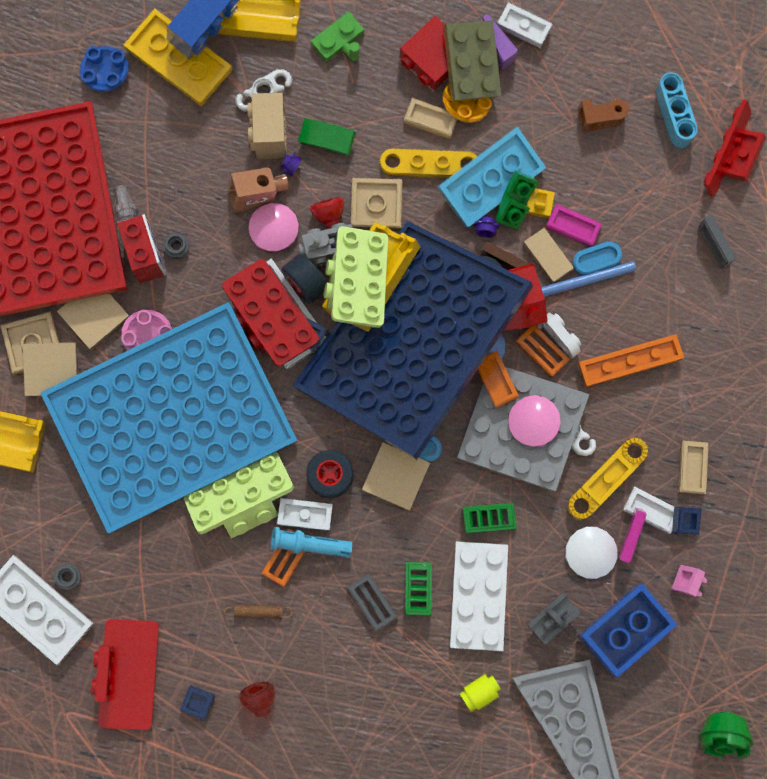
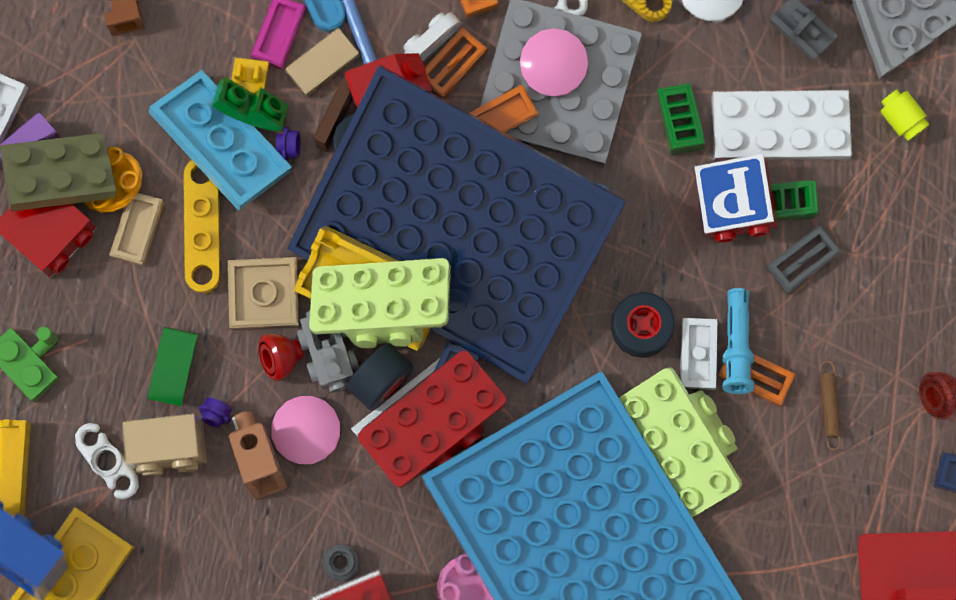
camera: 90 degrees left, 0 degrees up
(395, 476) = (639, 242): tan tile -> none
(420, 552) = (736, 198): none -> piece

